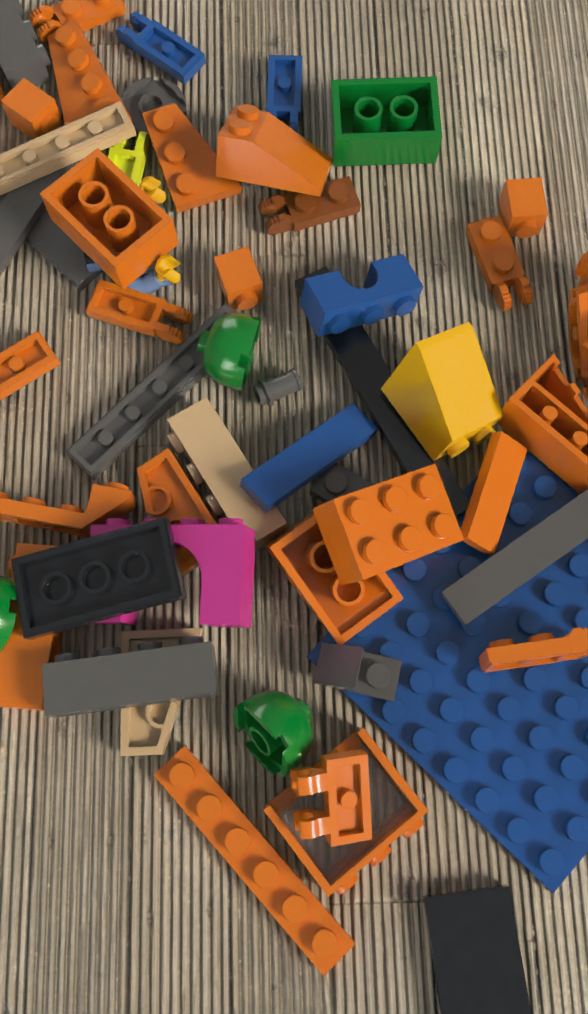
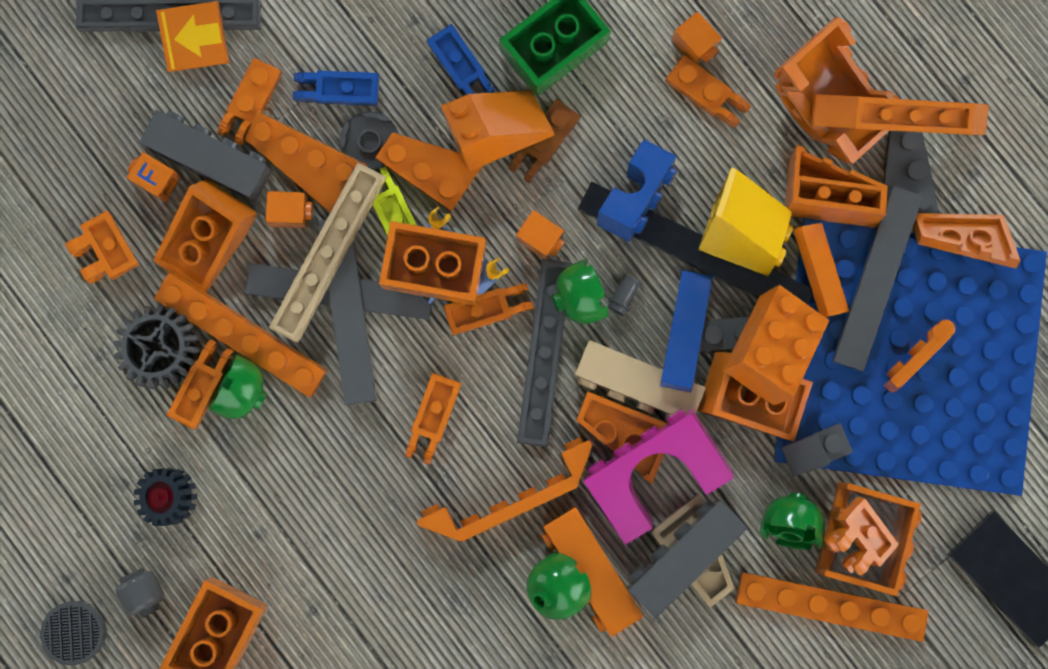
camera: 40 degrees left, 10 degrees up
(97, 578) = (619, 512): black tile -> none

